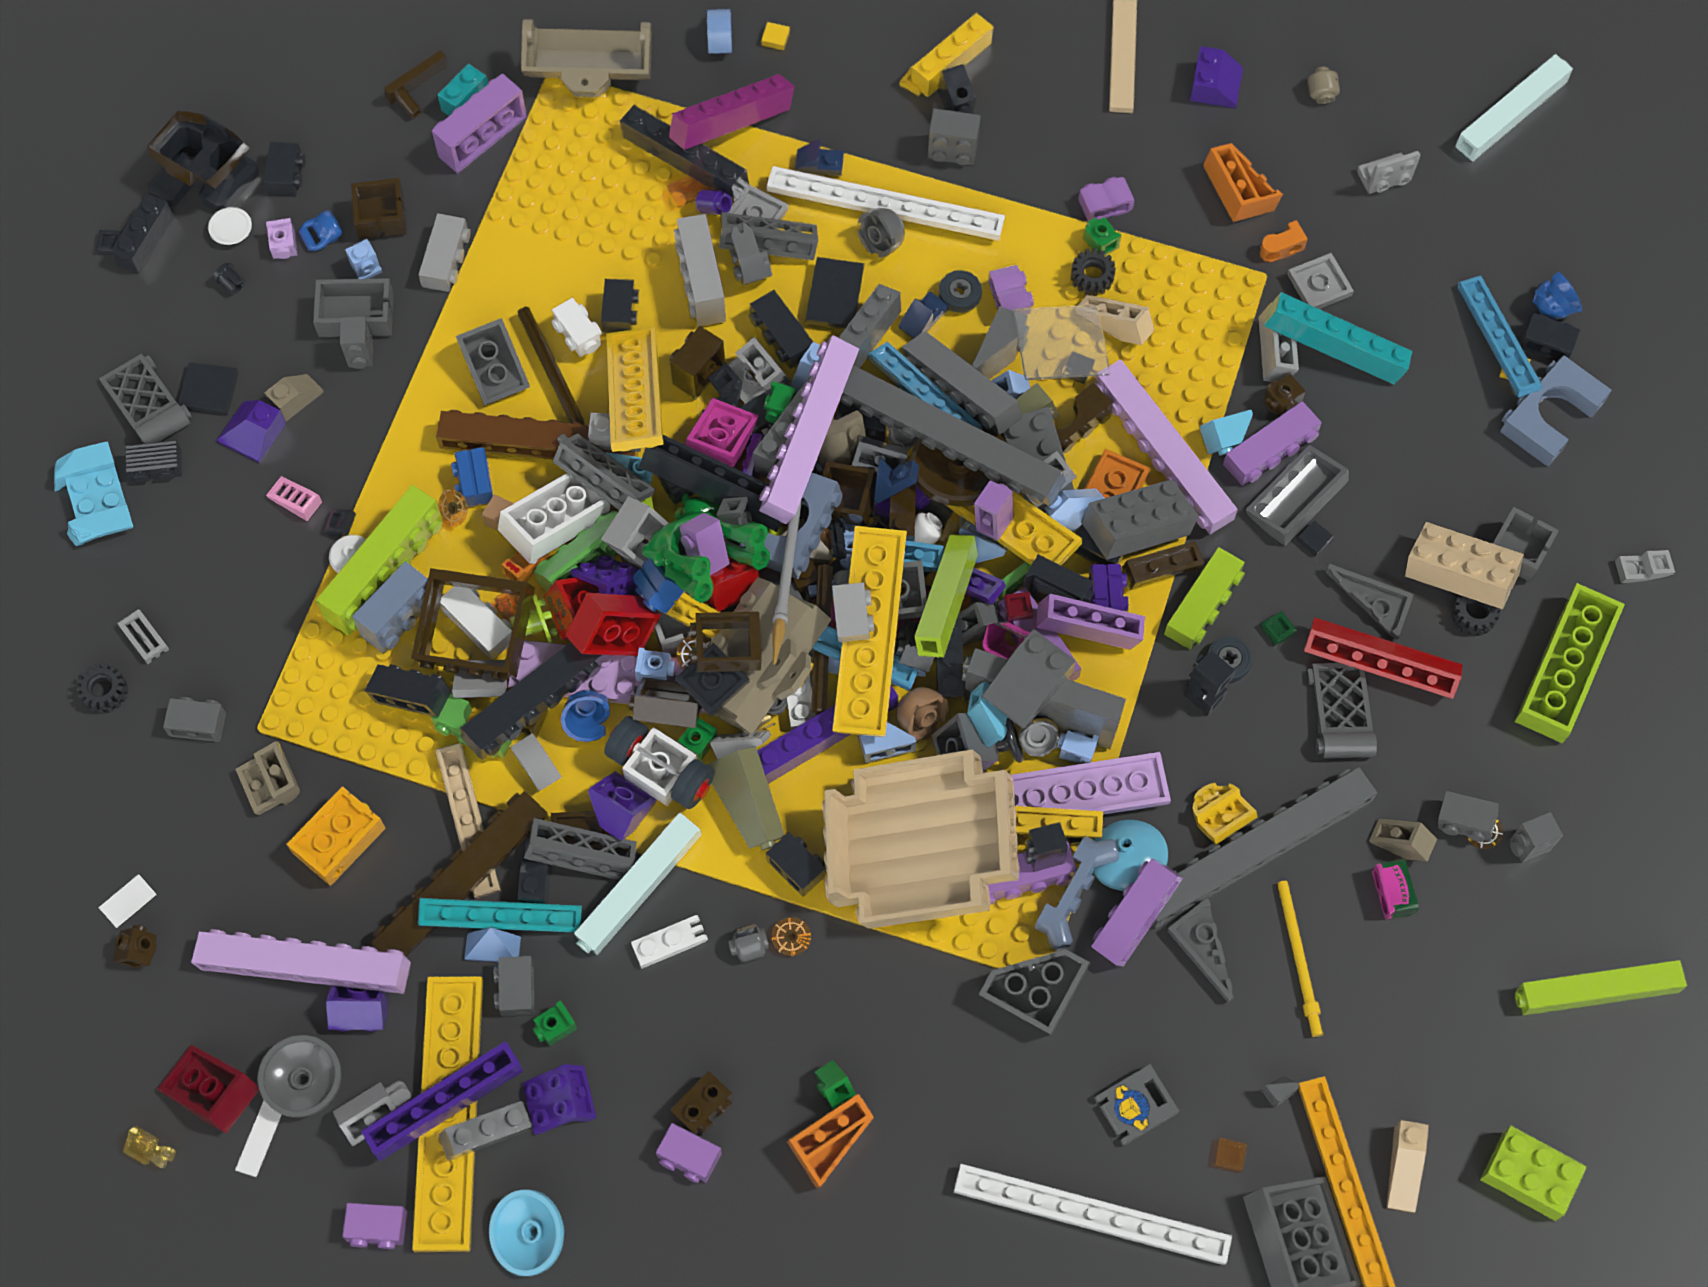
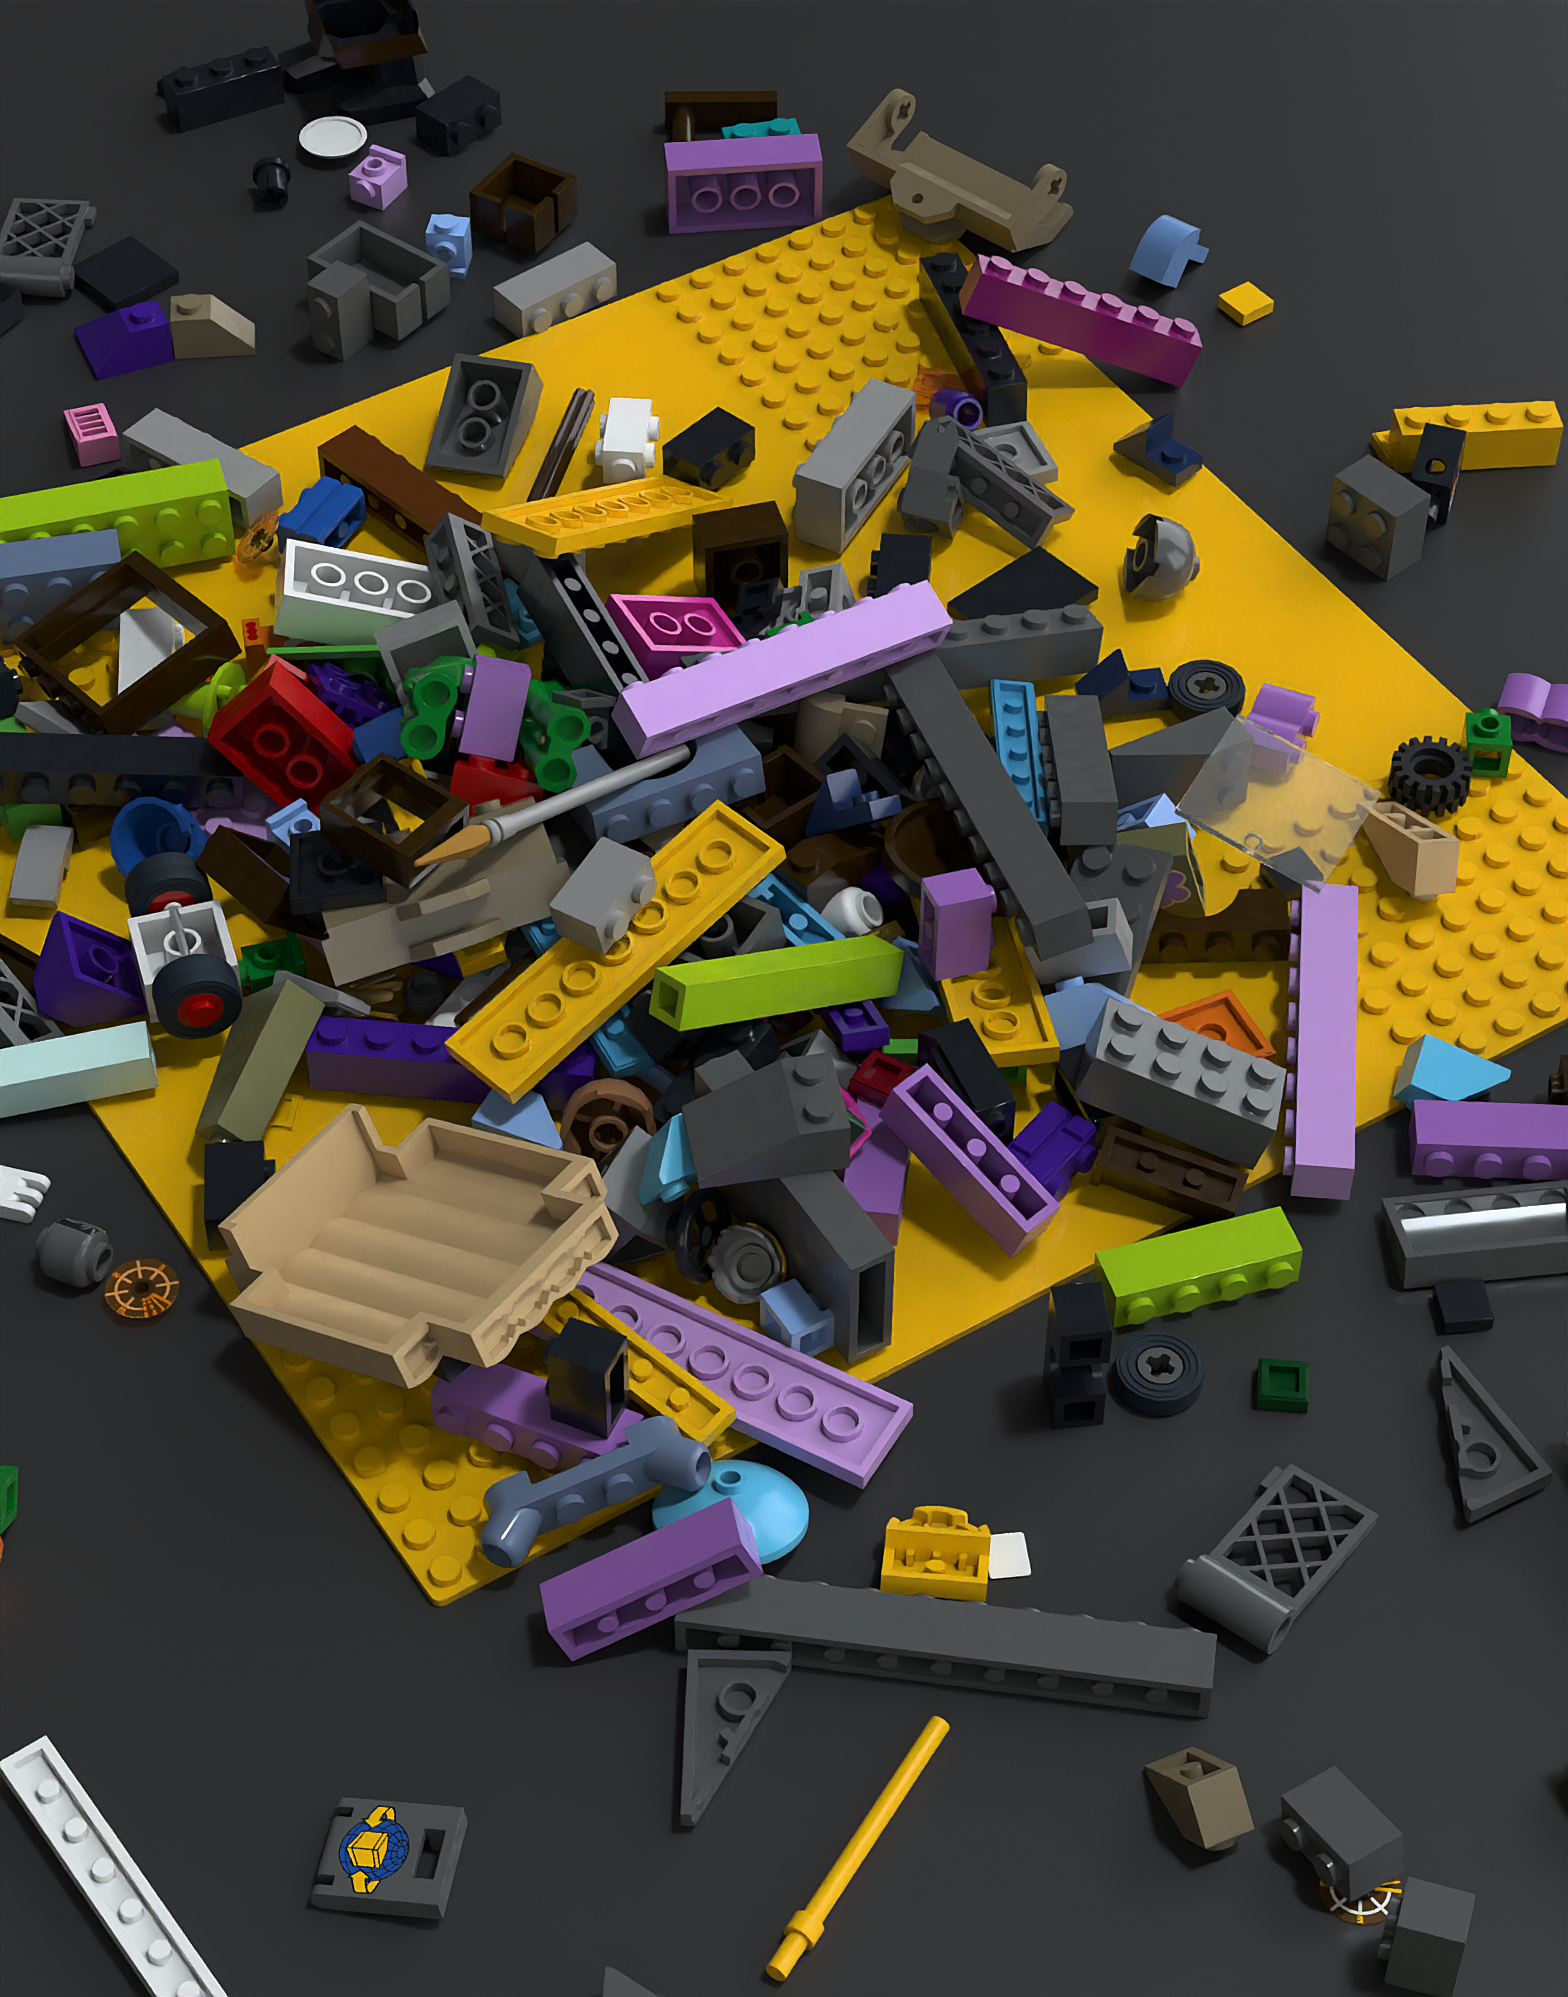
camera: 40 degrees right, 20 degrees down
(326, 229) = (443, 196): blue piece -> none
(380, 484) = (167, 441): none -> light grey brick
(867, 198) = (1218, 552): white plate -> none
(1037, 987) = (402, 1579): dark grey brick -> none
(1245, 787) = (1008, 1556): none -> white sticker
(1383, 658) = (1413, 1522): red brick -> none
(1395, 889) = (1112, 1853): dark pink piece -> none

